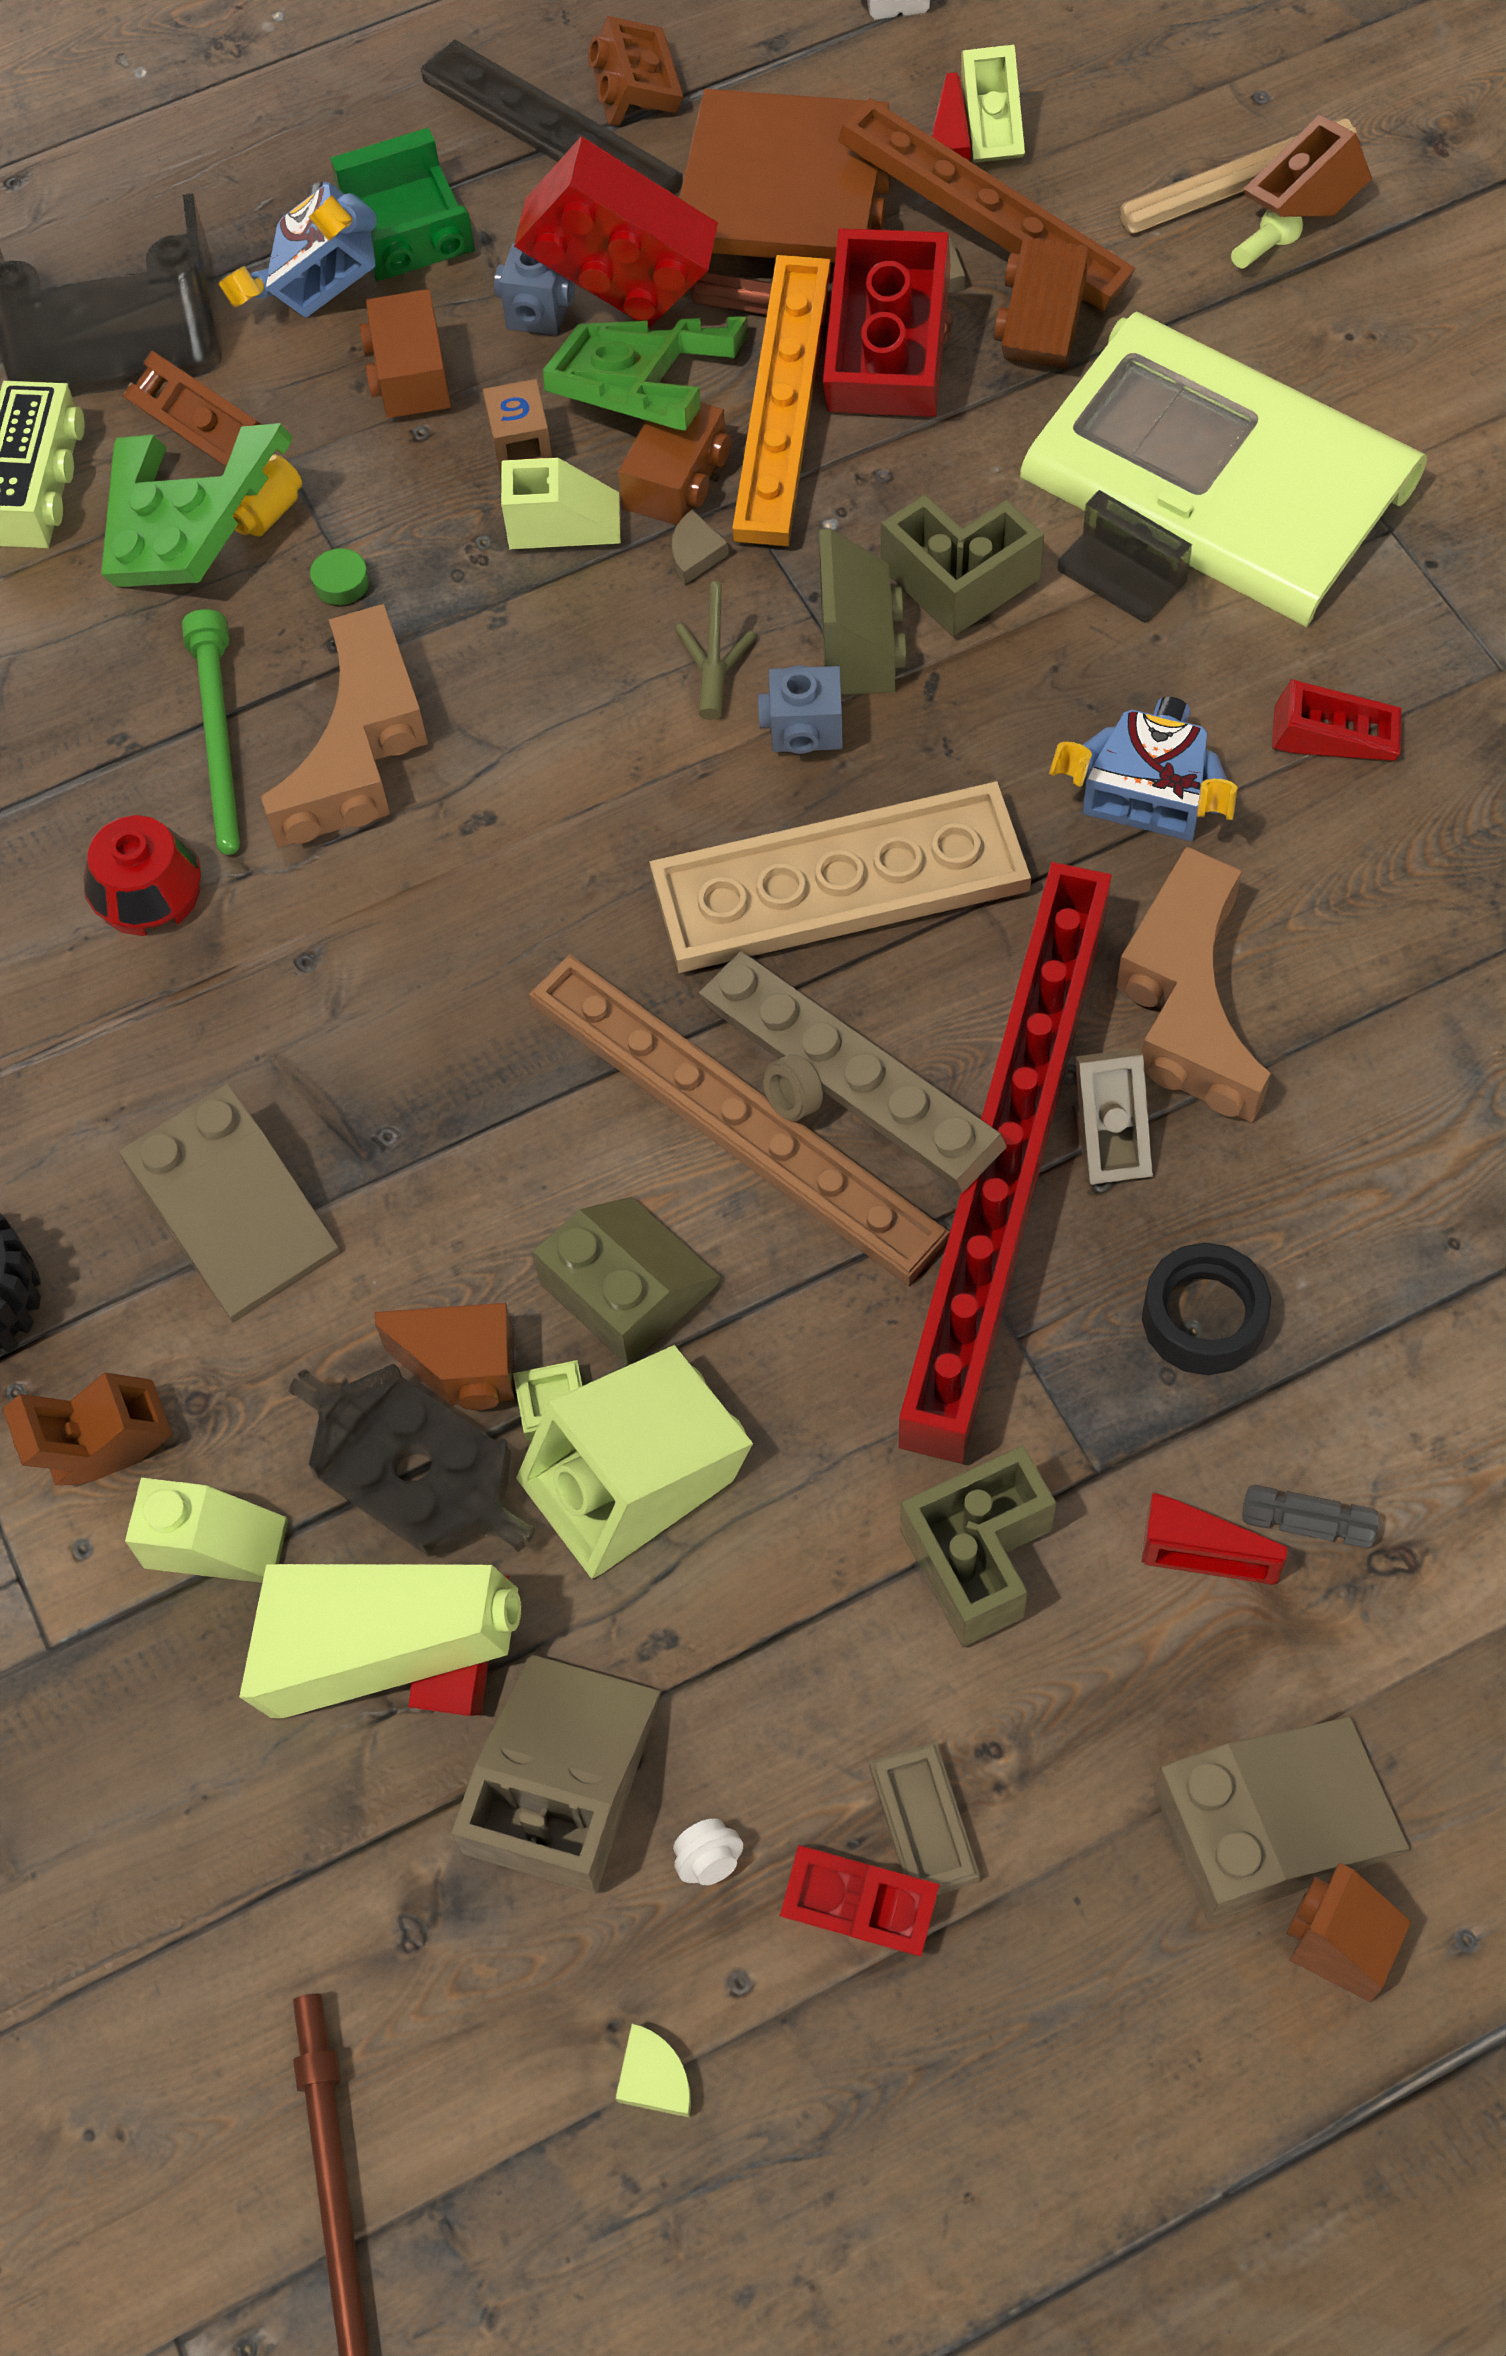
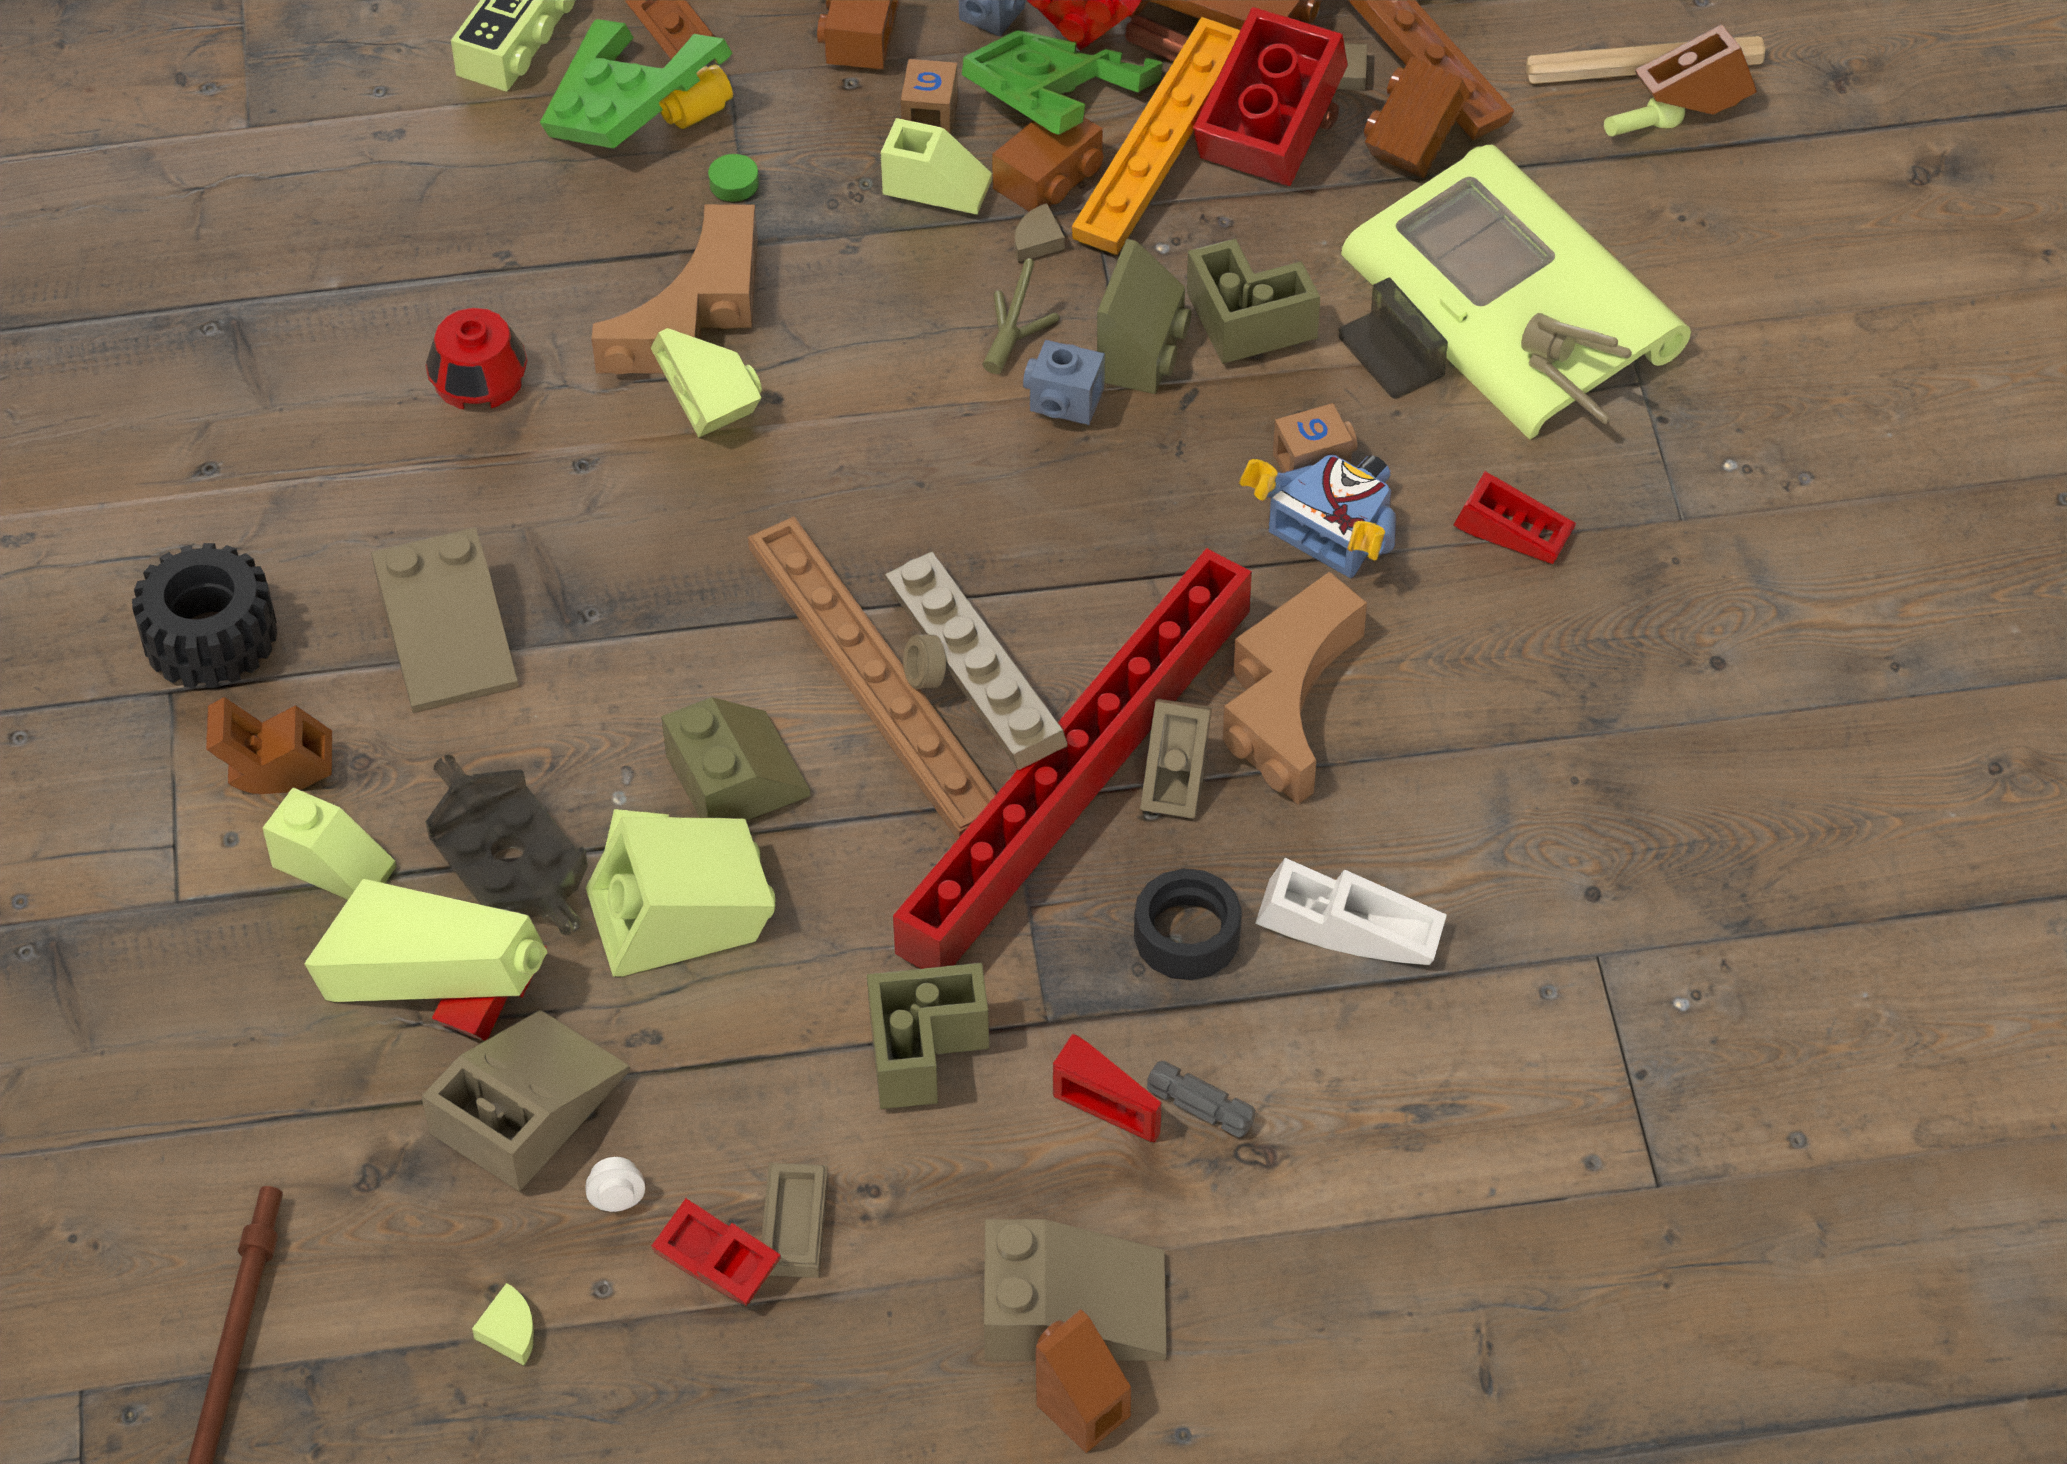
camera: 15 degrees right, 10 degrees down
(206, 639) = (603, 195): bright green piece -> none
(412, 824) = (707, 380): none -> yellowish green slope
(455, 1351) = (576, 777): dark orange slope -> none
(839, 876) = (1039, 519): tan plate -> none
(1093, 698) = (1311, 436): none -> medium nougat brick
(1303, 510) = (1553, 340): none -> dark tan plant
(1374, 1242) = (1349, 915): none -> white slope

